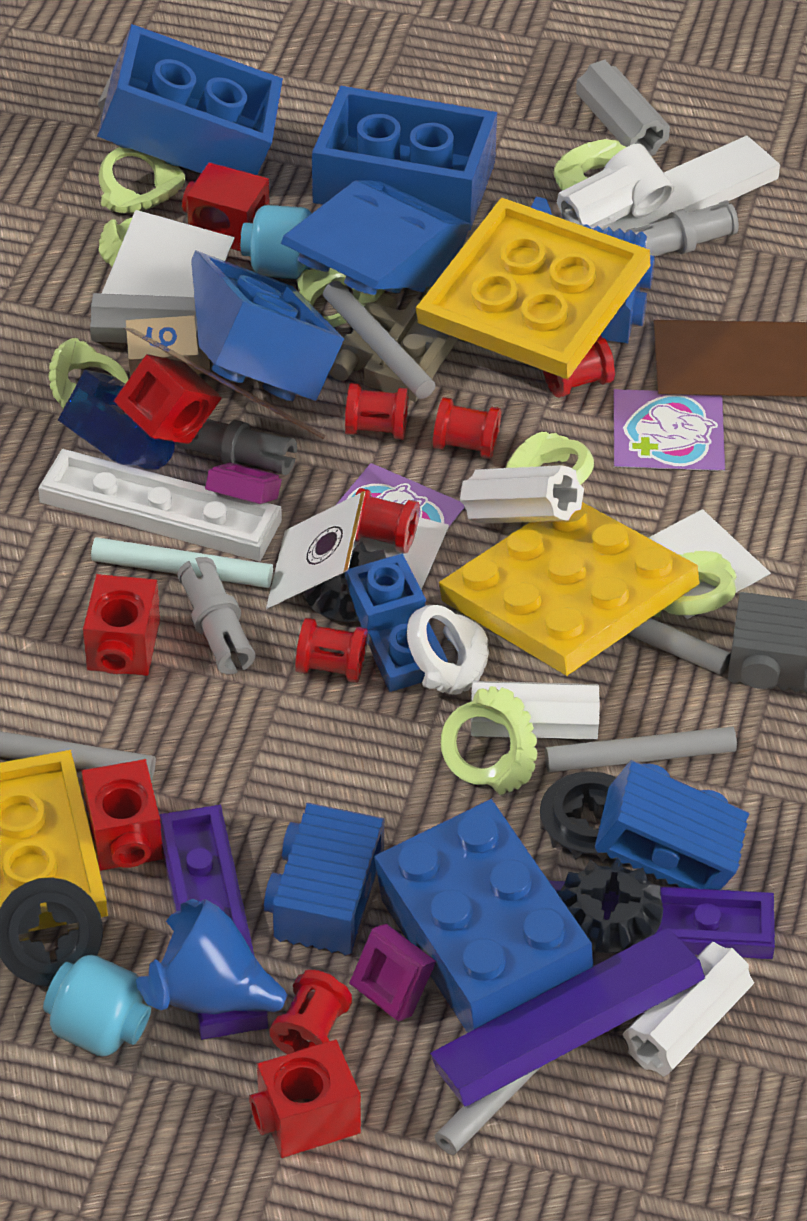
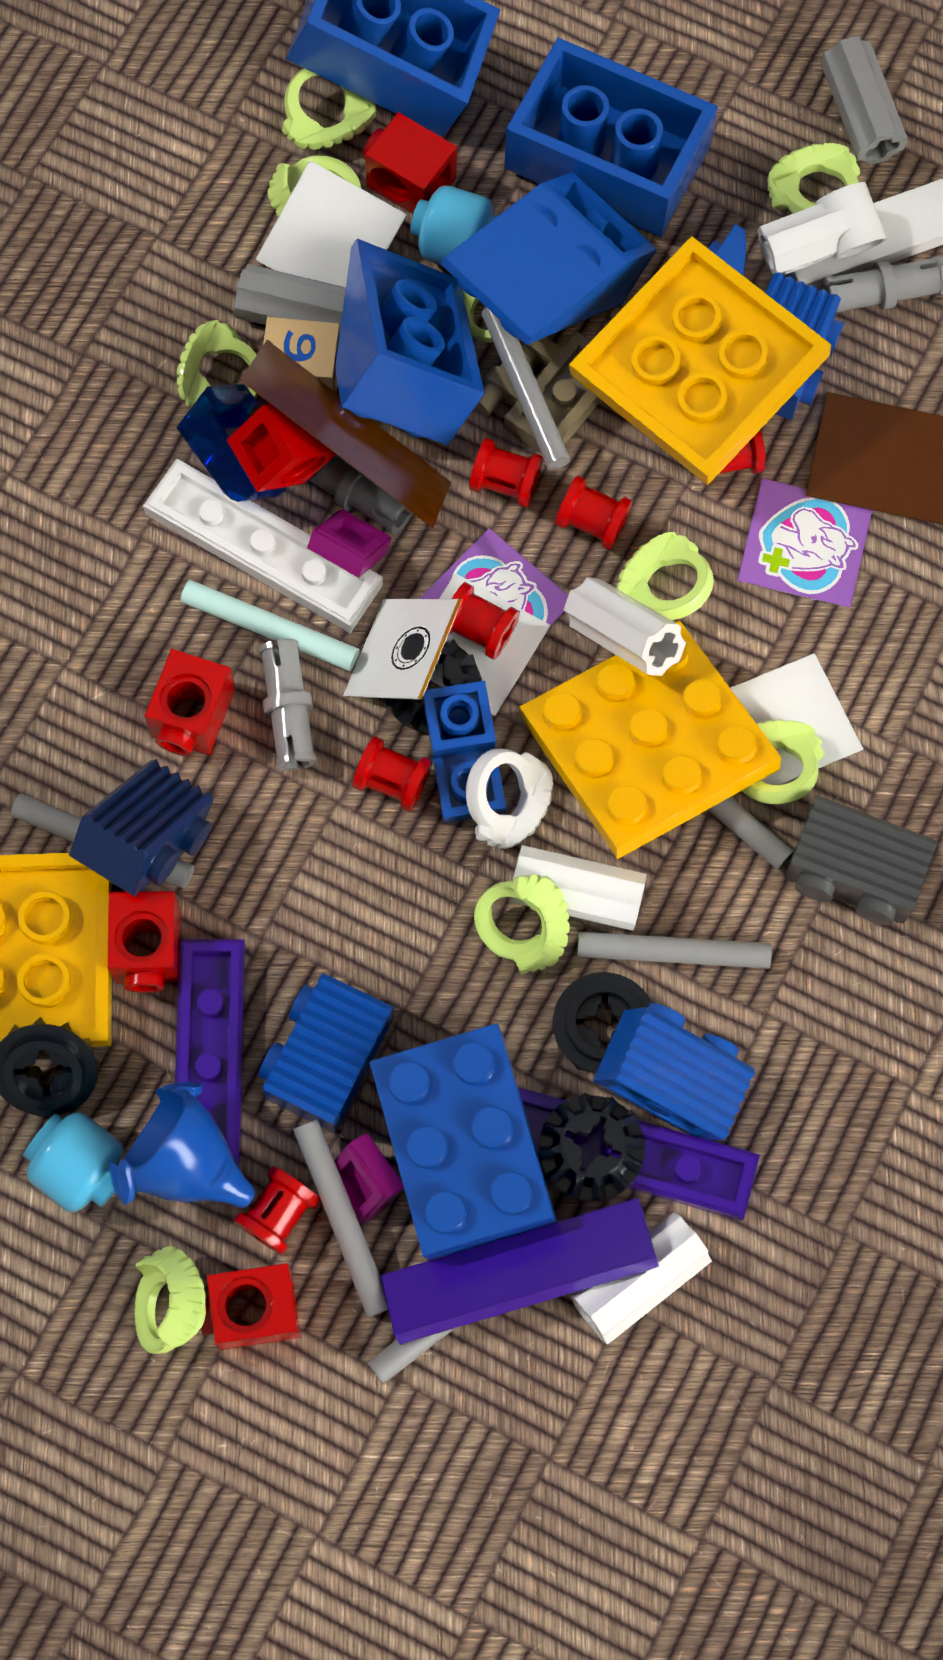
camera: 10 degrees right, 25 degrees up
(102, 717) = (143, 828): none -> dark blue brick
(241, 1104) = (186, 1300): none -> yellowish green piece
(379, 1010) = (342, 1217): none -> light grey piece

